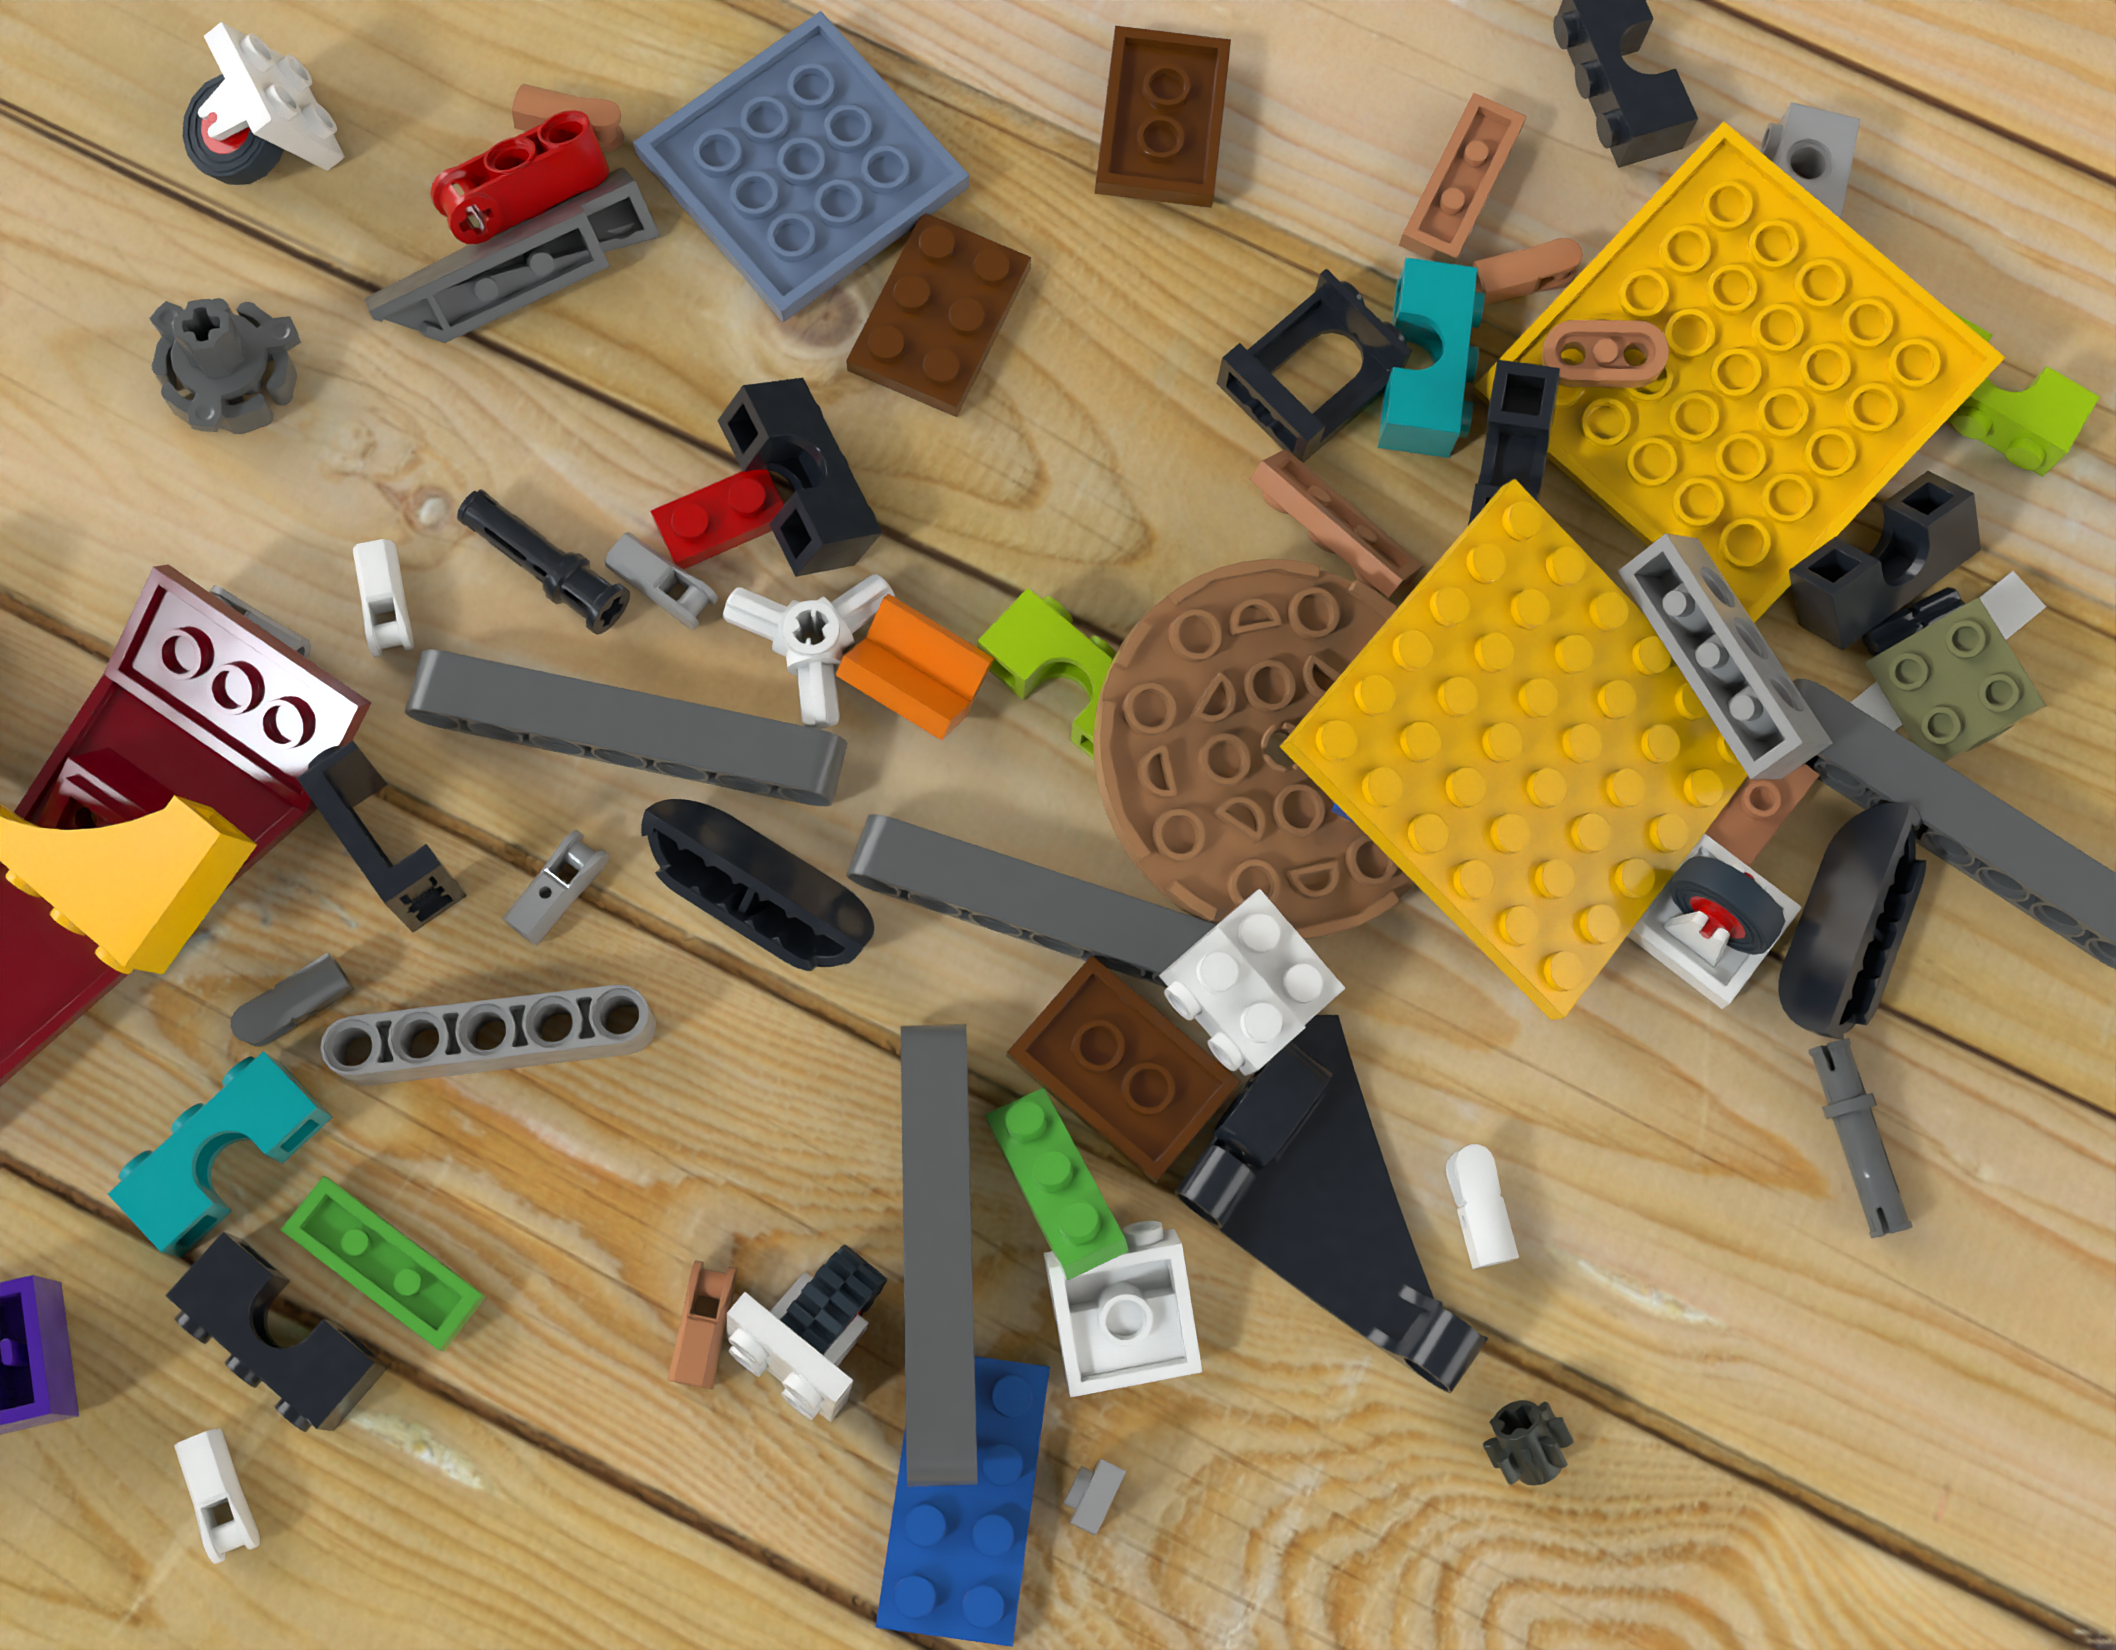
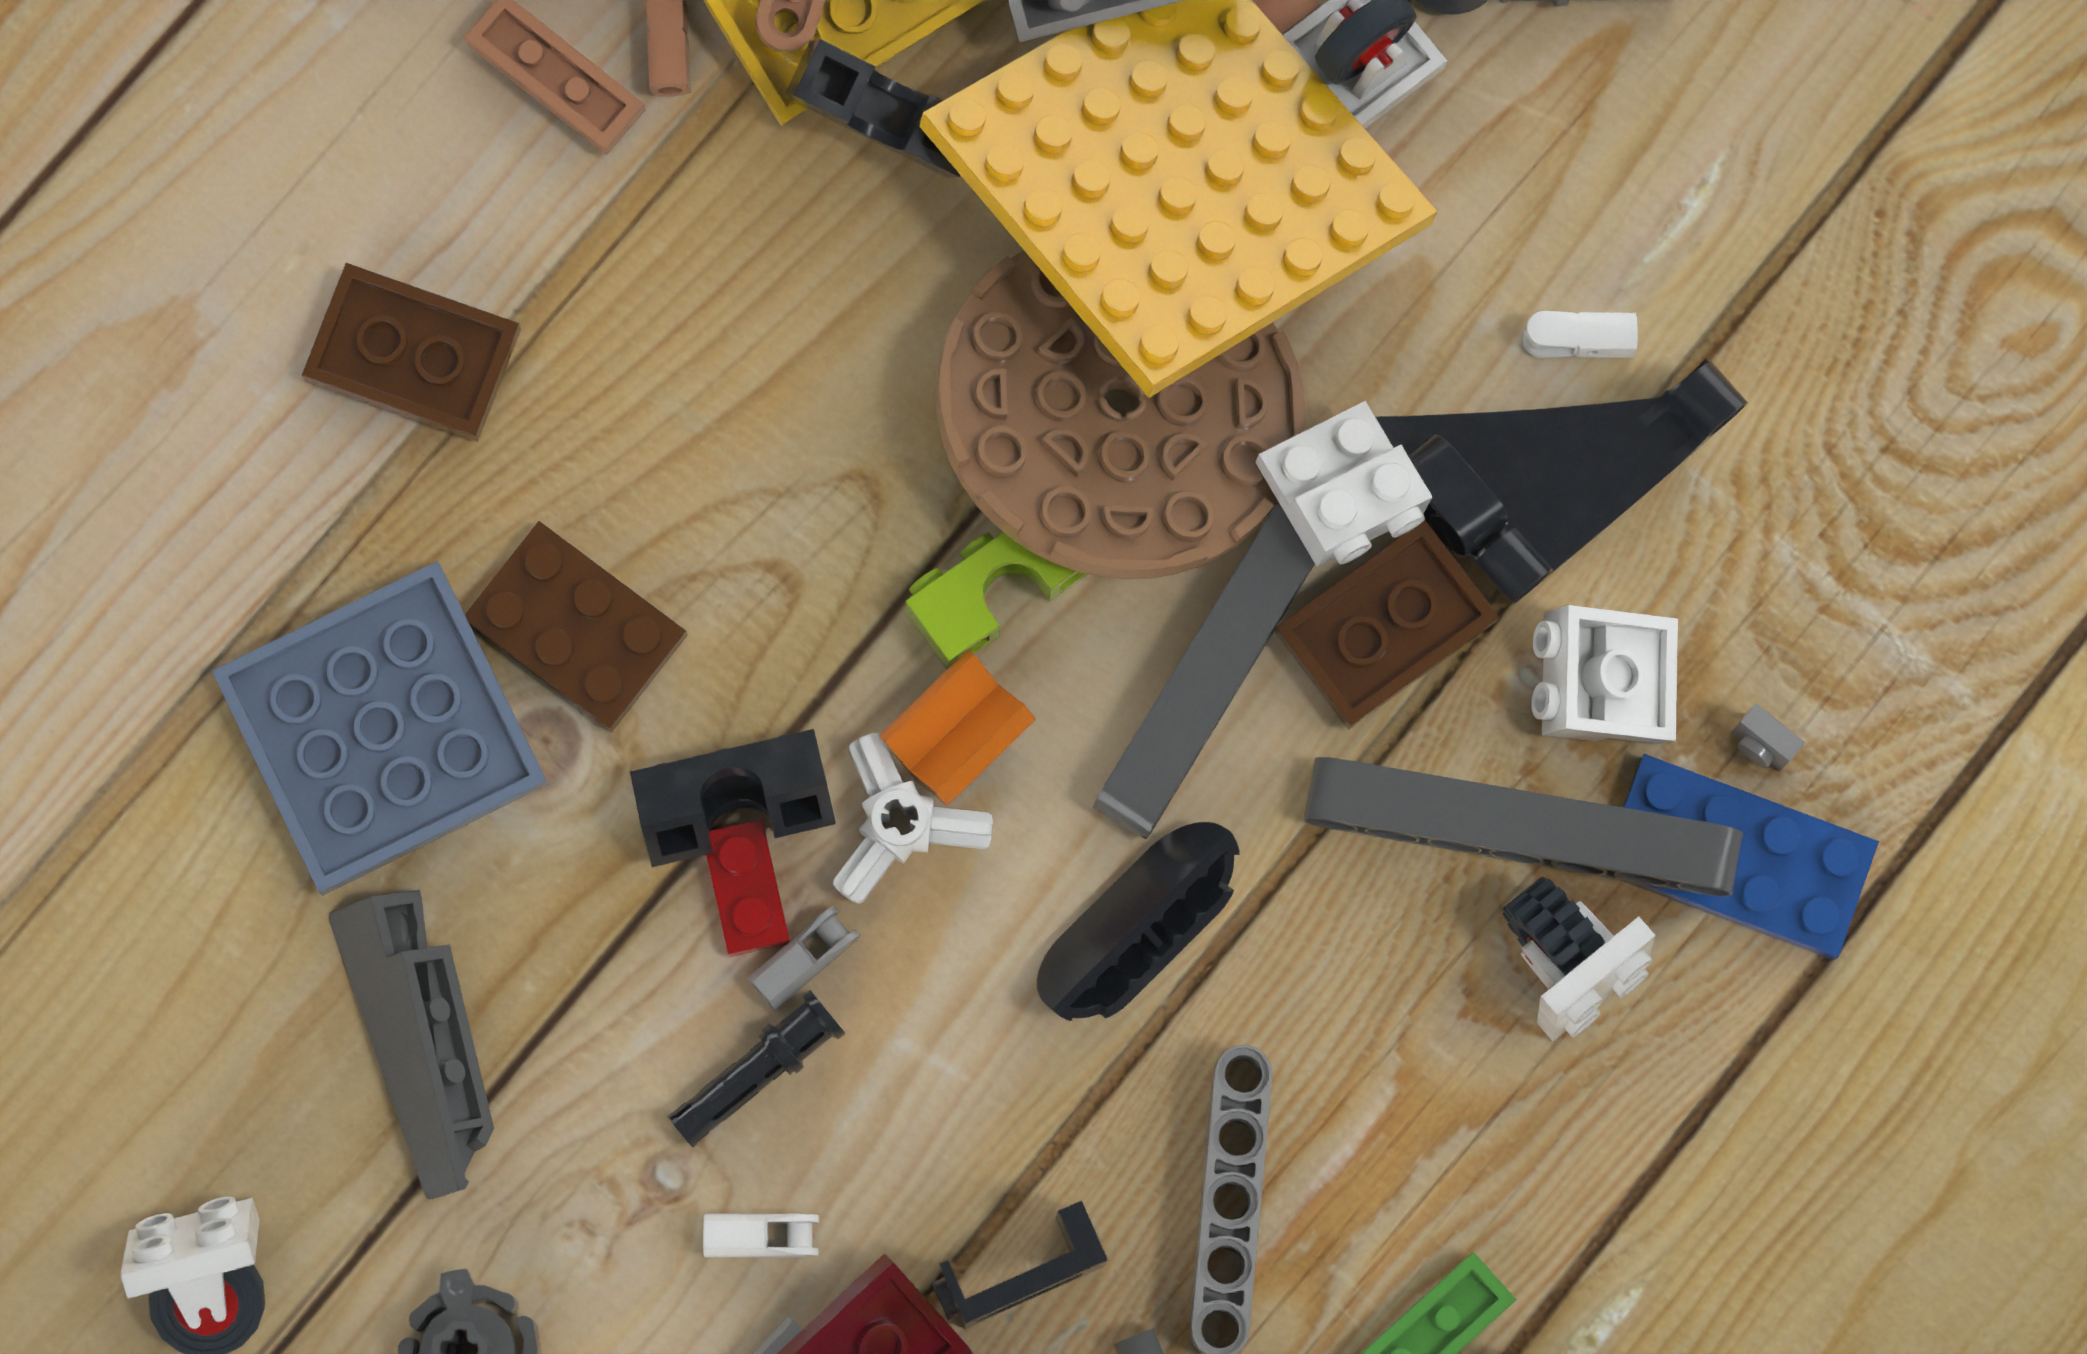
camera: 75 degrees left, 5 degrees up
(521, 177) = (356, 1041): red piece -> none
(535, 105) = (268, 955): nougat bar -> none
(549, 896) = (1103, 1126): light grey bar -> none
(626, 728) = (950, 1021): dark grey beam -> none
(698, 1336) = (1550, 1062): nougat bar -> none
(1056, 1184) = (1485, 706): bright green plate -> none
(1331, 309) = (731, 206): black panel -> none
(1335, 523) = (895, 293): nougat plate -> none
(1427, 406) = (697, 133): teal arch -> none
(1528, 1442) = (1799, 349): pearl dark grey gear -> none

